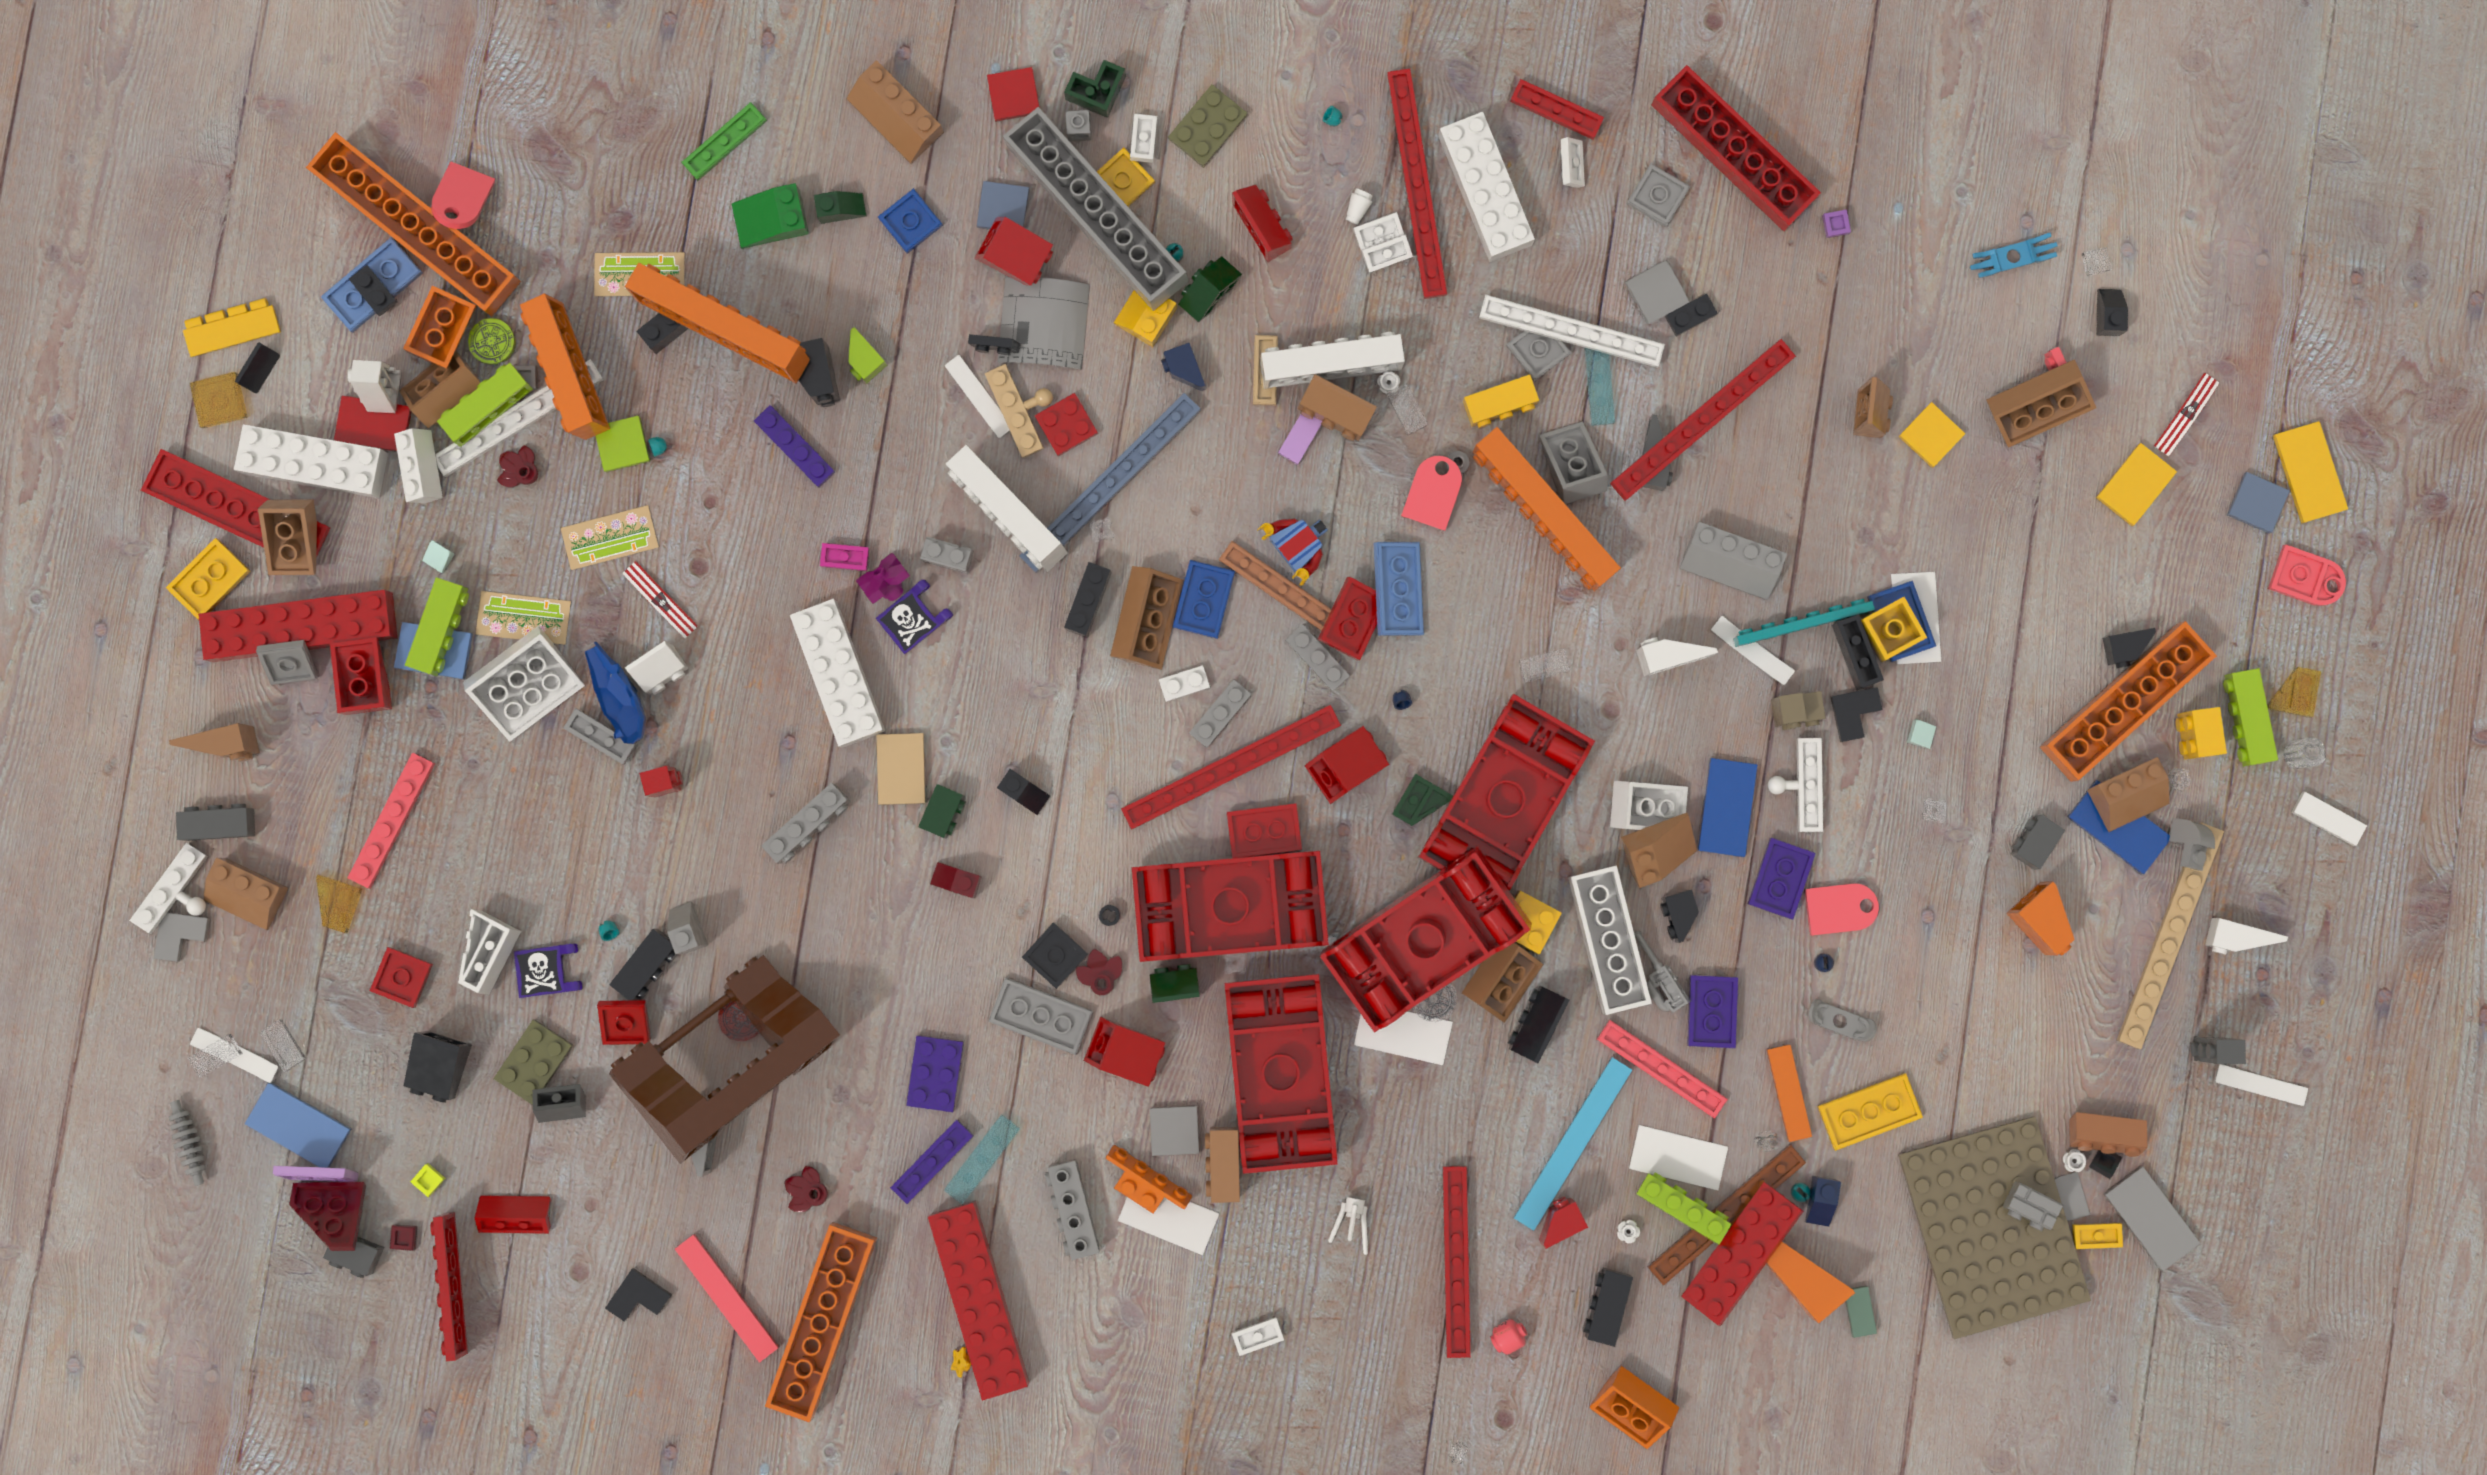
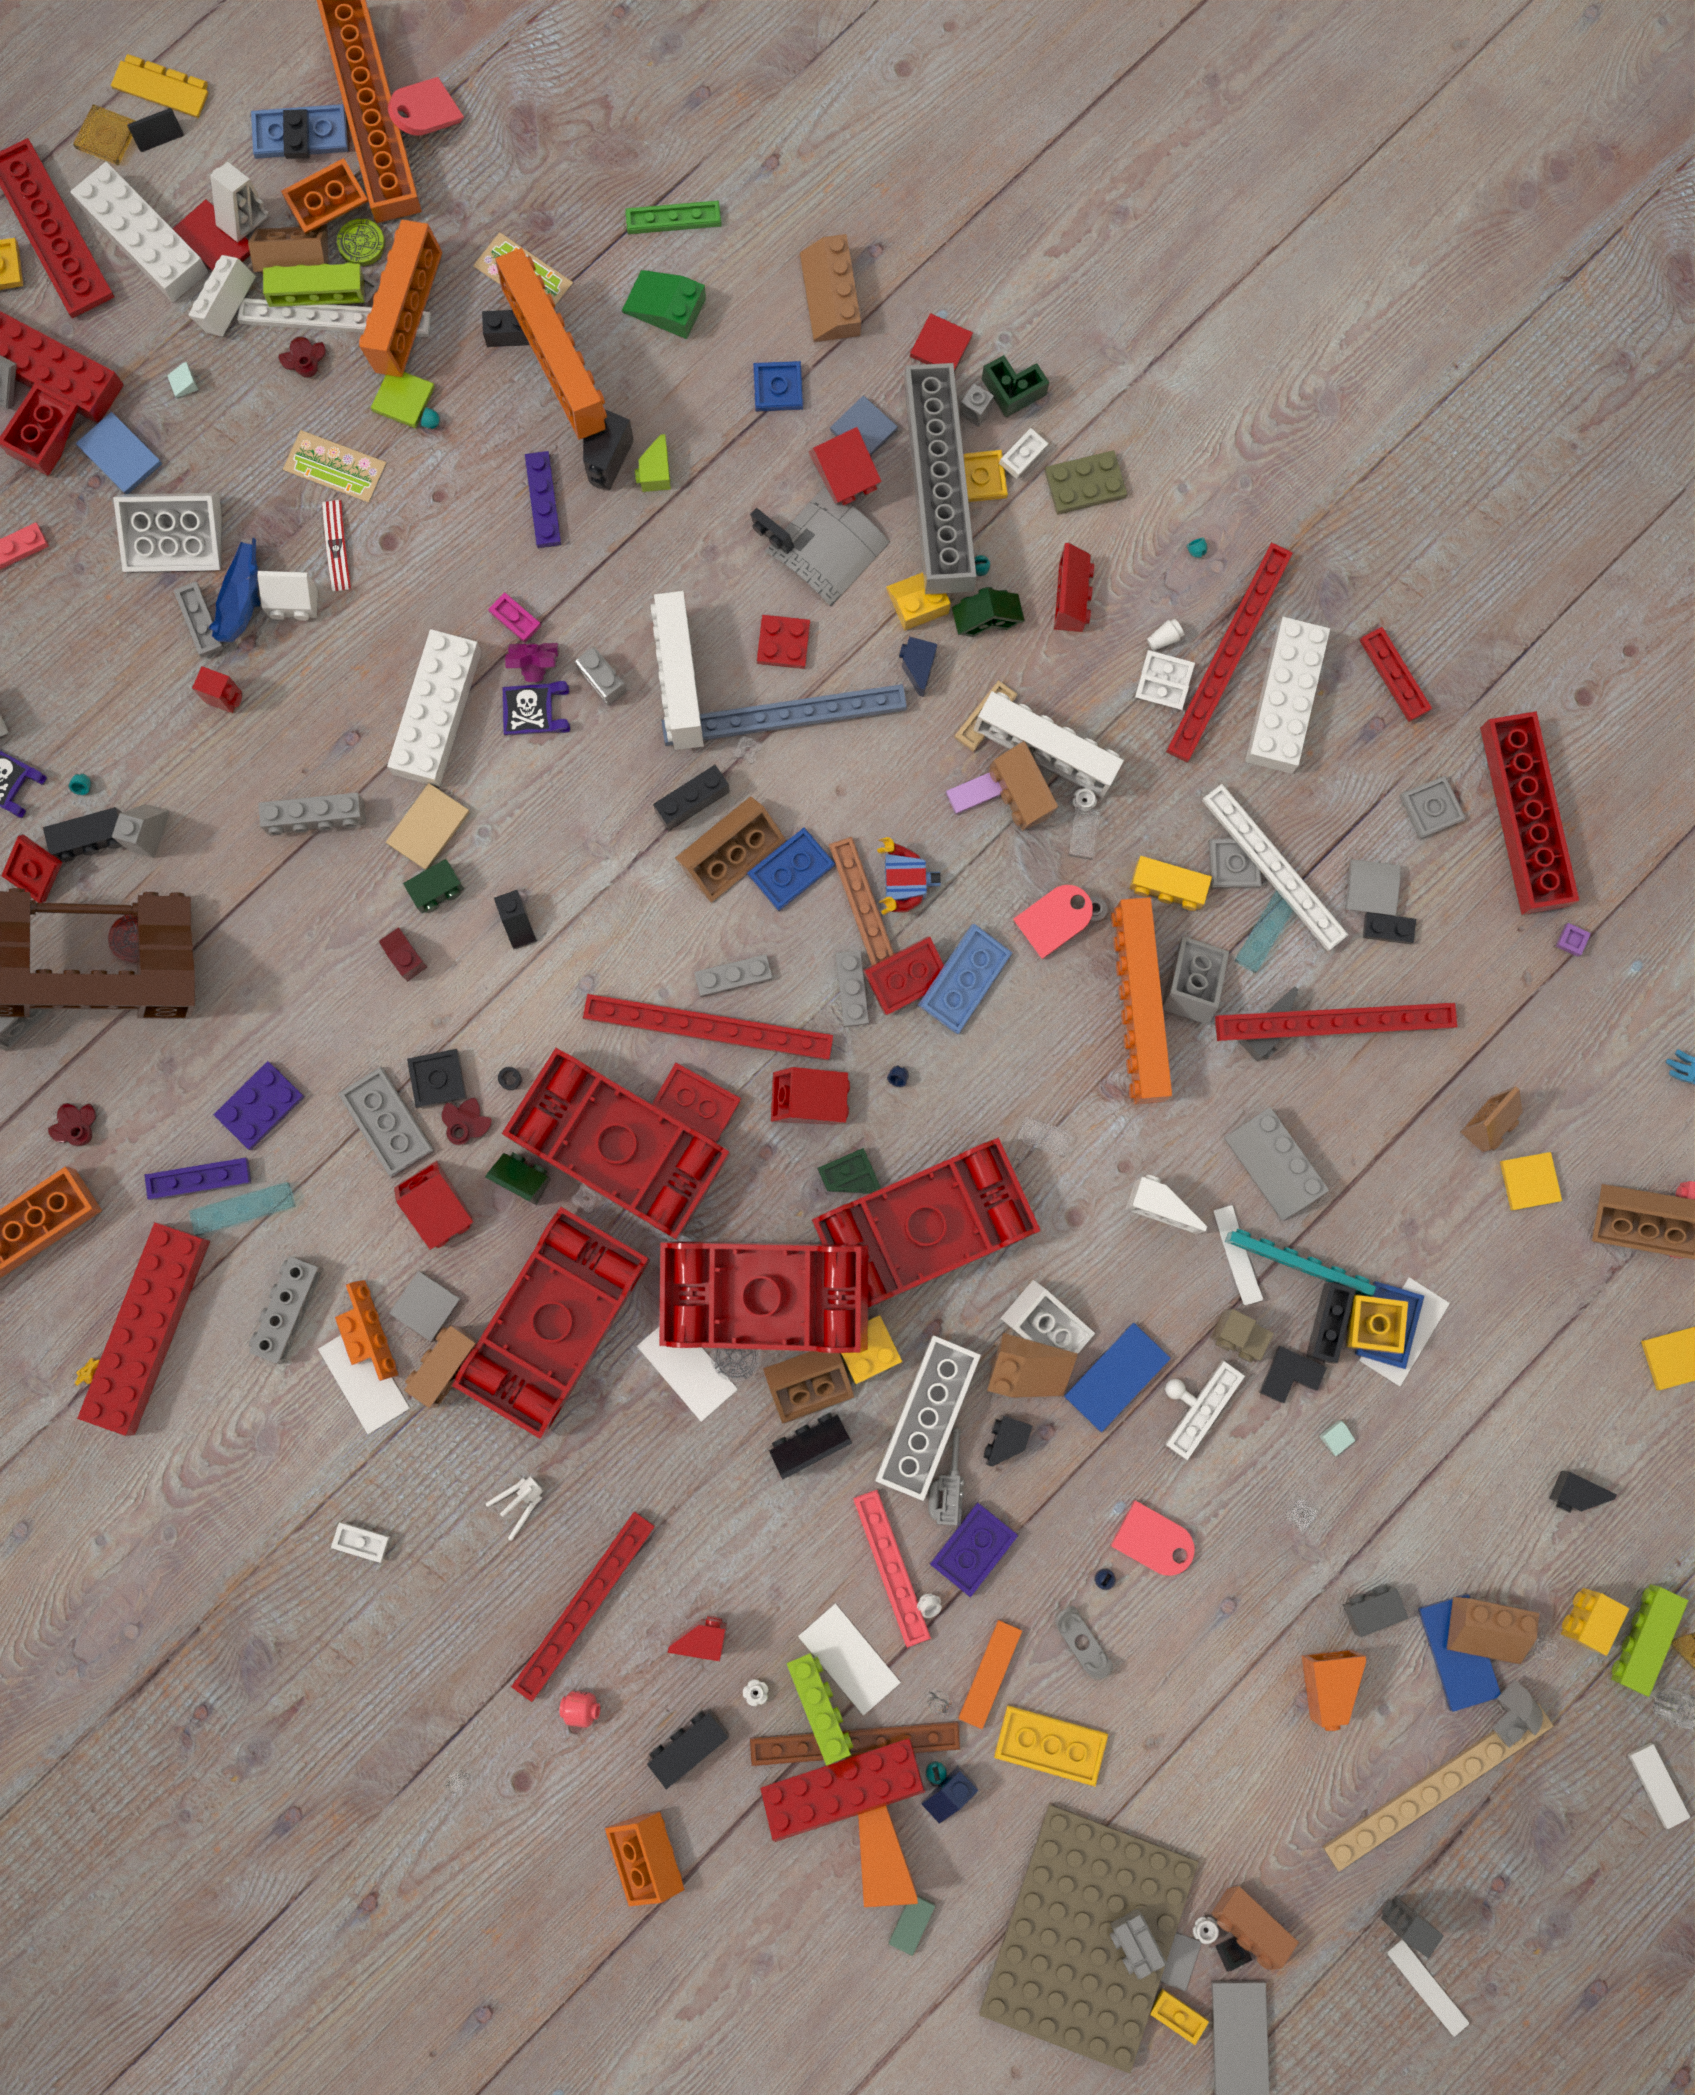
camera: 30 degrees right, 5 degrees down
(289, 536) = (72, 275): medium nougat slope -> none
(437, 626) = (134, 433): lime brick -> none
(517, 615) = (208, 472): sticker -> none
(839, 206) = (727, 332): dark green slope -> none
(977, 395) = (727, 567): white sticker -> none
(1016, 411) = (750, 599): tan plate -> none
(1184, 683) = (721, 928): white plate -> none
(1572, 162) = (1377, 727): white plate -> none
(1572, 1143) = (763, 1576): medium azure tile -> none
(1709, 1075) = (929, 1605): none -> white plate
(1781, 878) = (1120, 1475): dark purple plate -> none
(2128, 701) = (1546, 1543): orange brick -> none
(2234, 937) = (1494, 1828): white slope -> none

